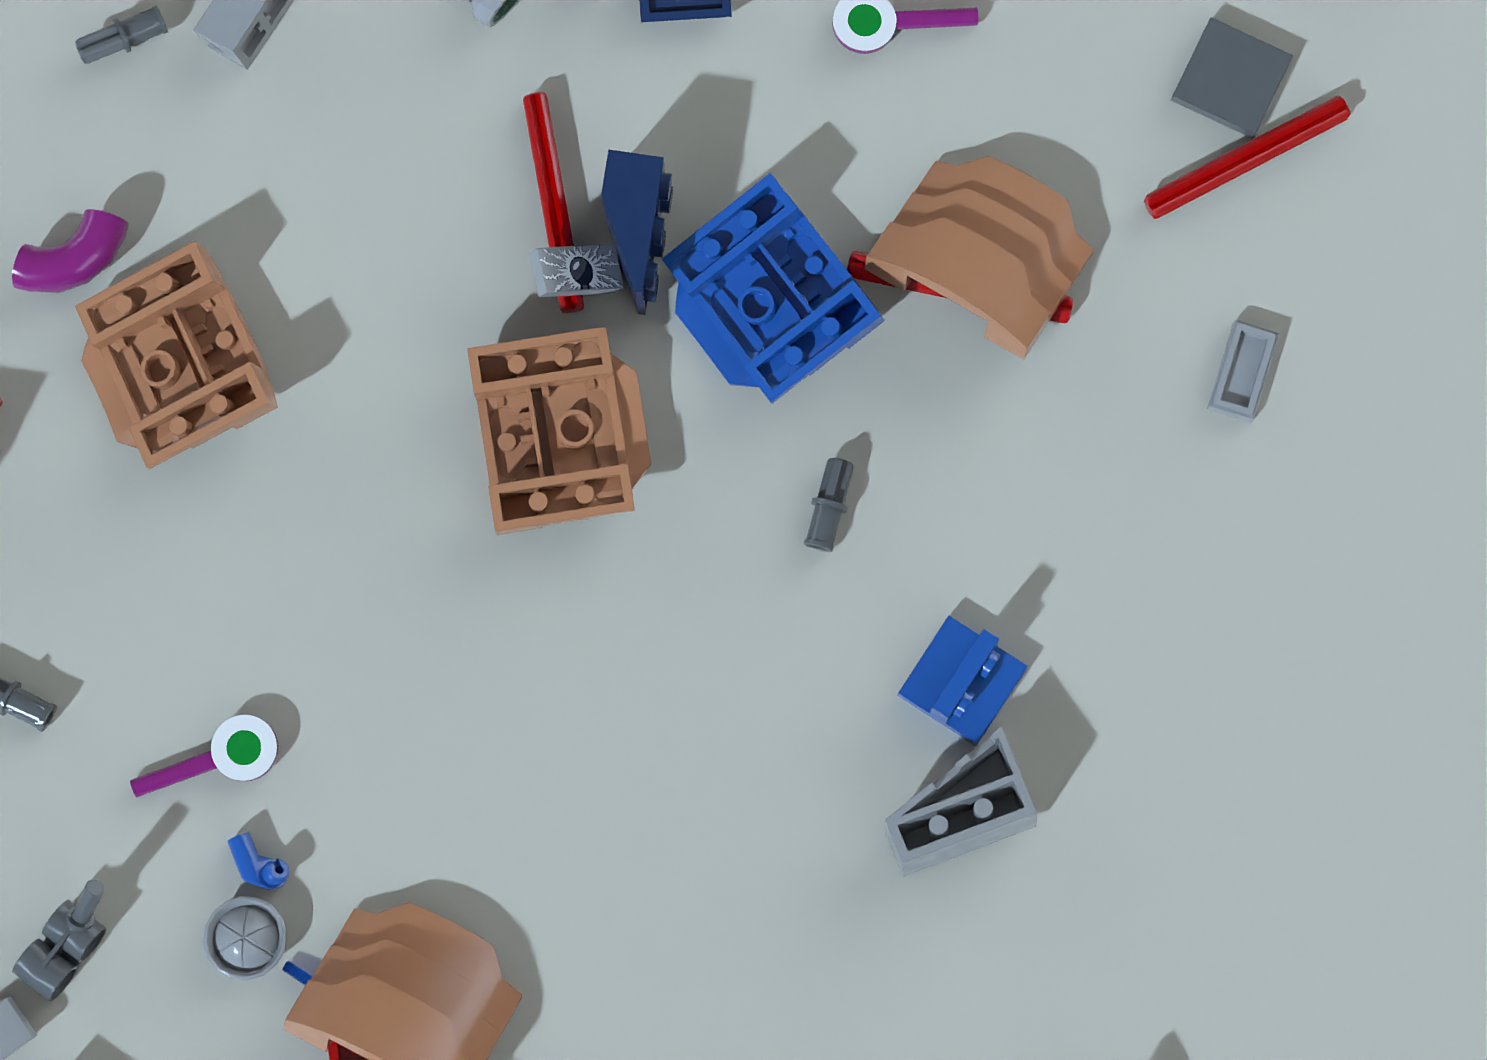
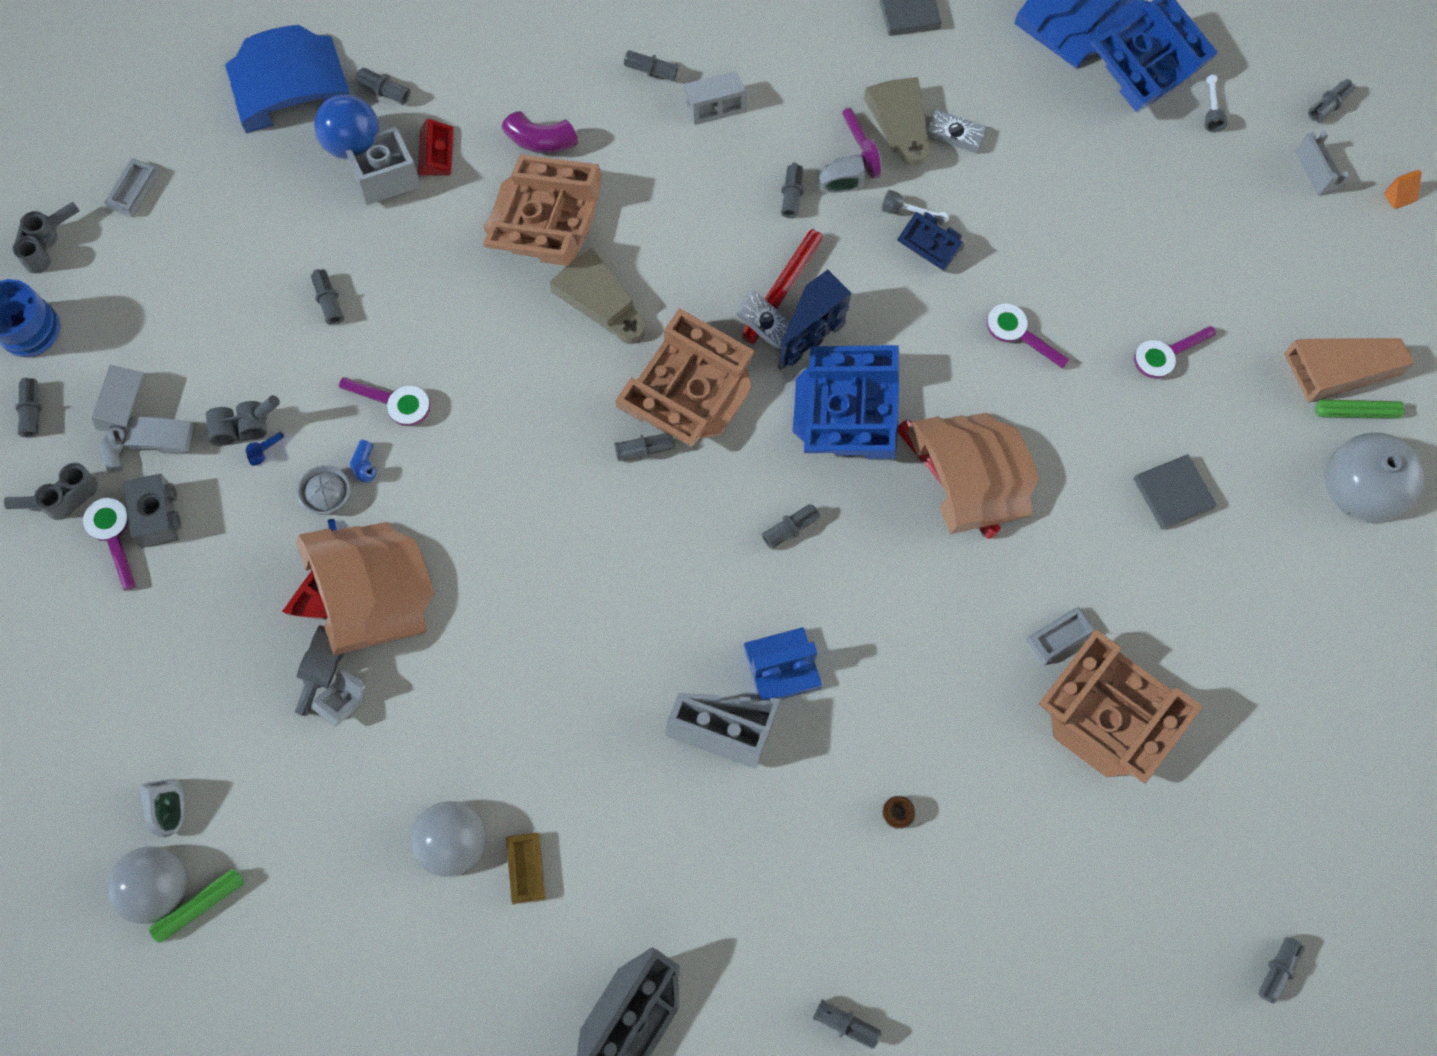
camera: 35 degrees right, 10 degrees down
(115, 965) = (255, 450): none -> clear blue hand
(343, 408) = (598, 295): none -> dark tan piece
(454, 61) = (792, 191): none -> dark grey axle
(572, 556) = (644, 446): none -> dark grey axle
(1245, 730) = (907, 807): none -> reddish brown plate
(1247, 157) = (1151, 534): red axle -> none
(1370, 1016) = (847, 1024): none -> dark grey axle
(1377, 414) = (1116, 711): none -> nougat slope

